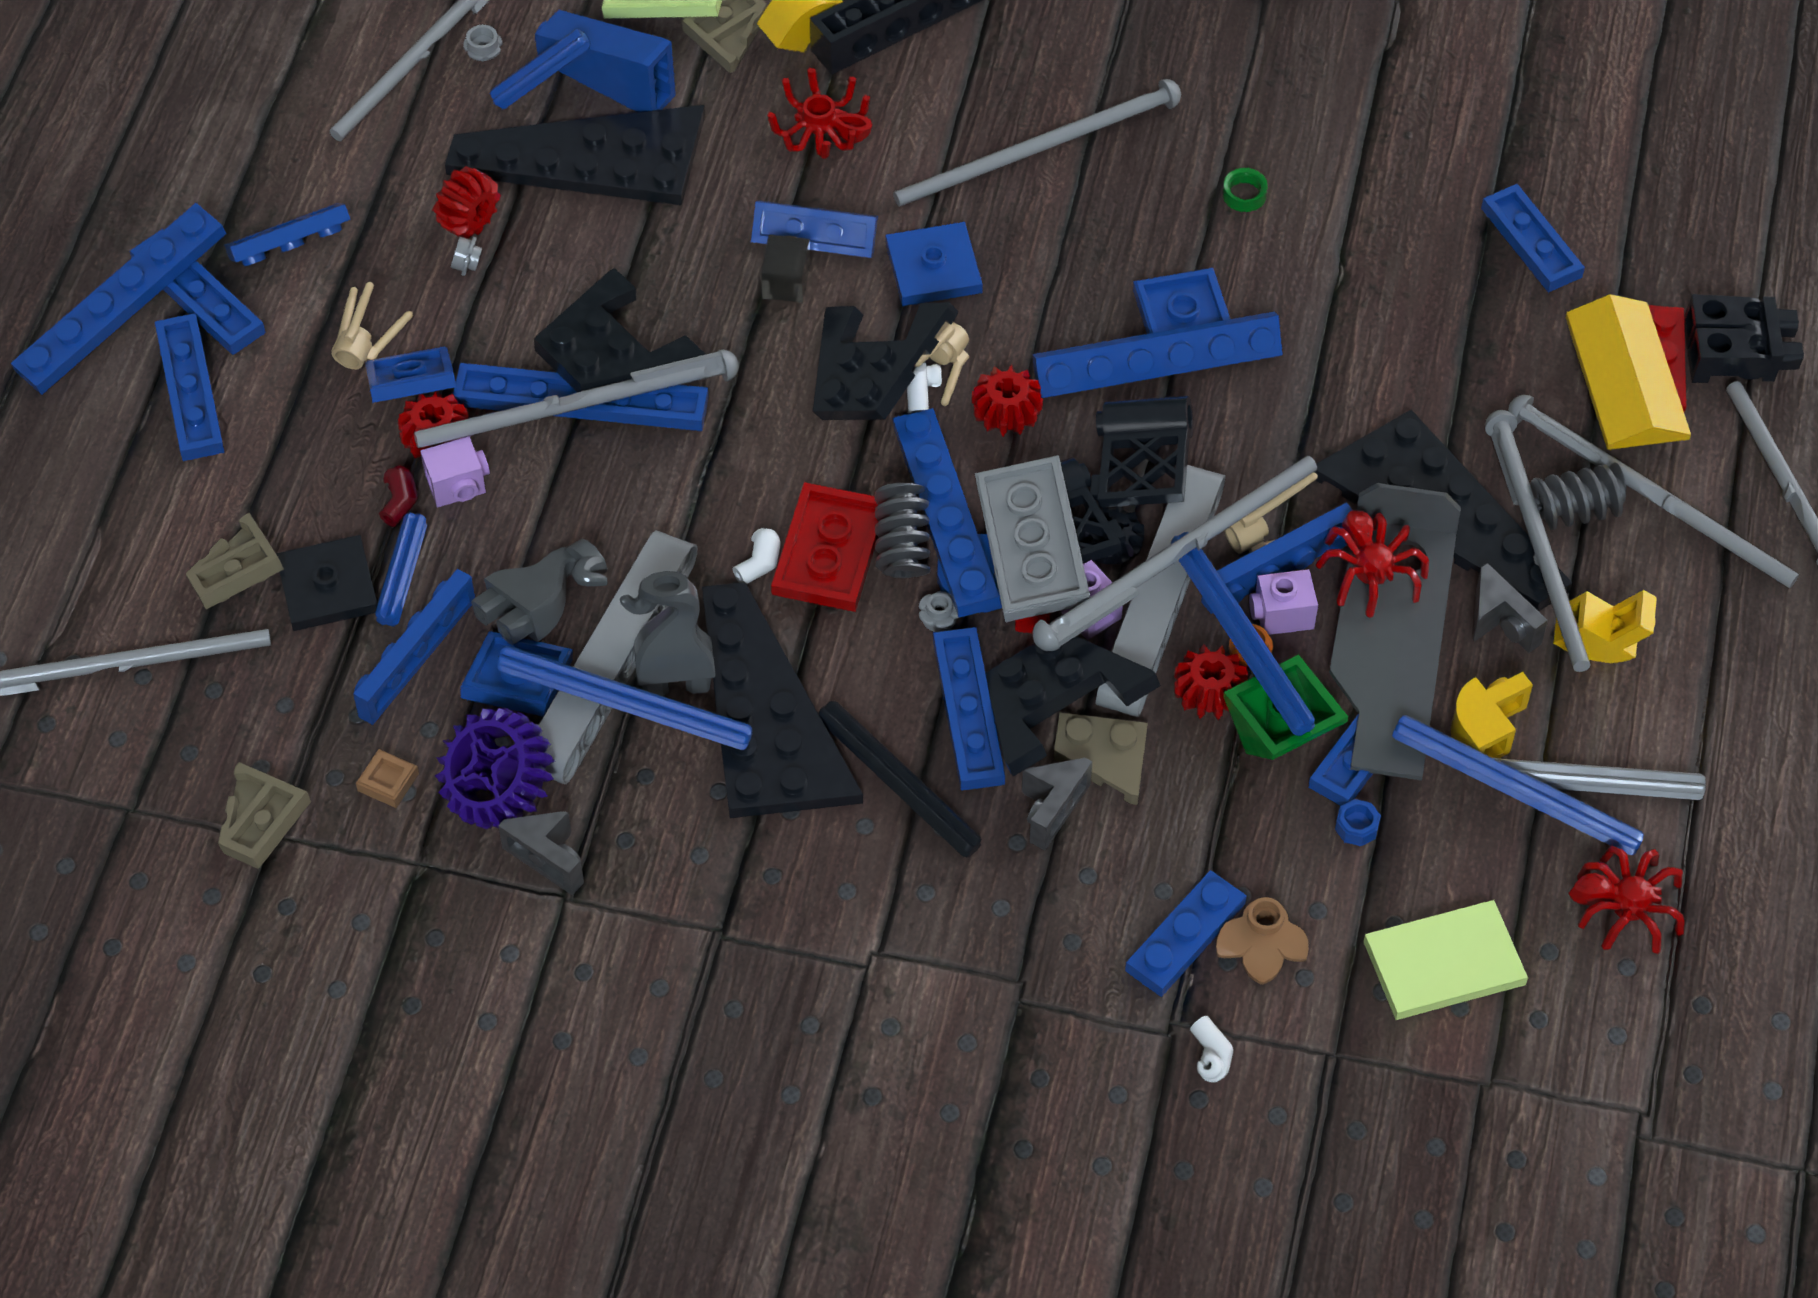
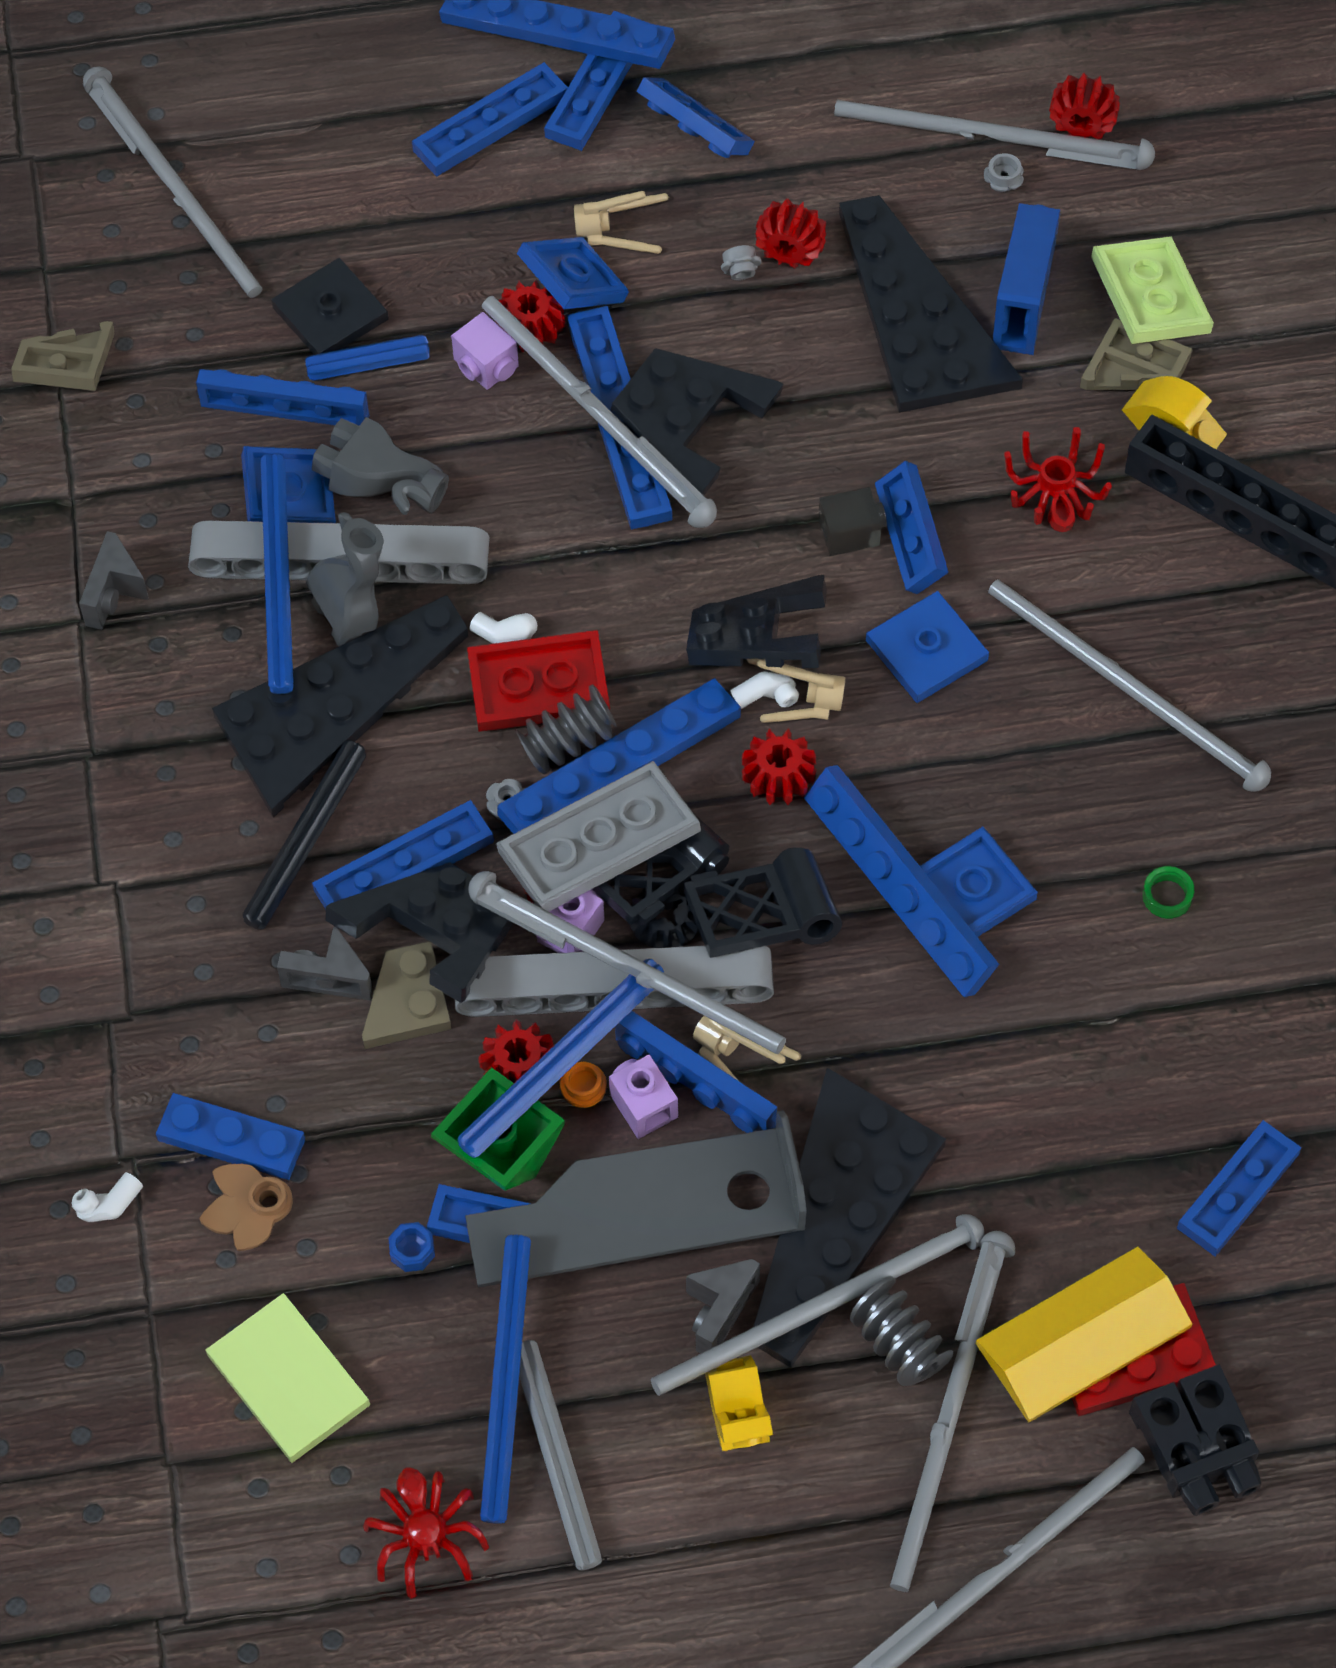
camera: 70 degrees right, 5 degrees up
(234, 565) = (314, 232): dark tan wing -> none
(387, 778) = (145, 438): medium nougat tile -> none
(403, 494) = (448, 323): dark red arm -> none
(510, 773) = (166, 505): dark purple gear -> none
(540, 68) = (978, 224): blue axle -> none
(1373, 560) = (714, 1153): red animal -> none
(1483, 713) = (578, 1316): yellow brick -> none

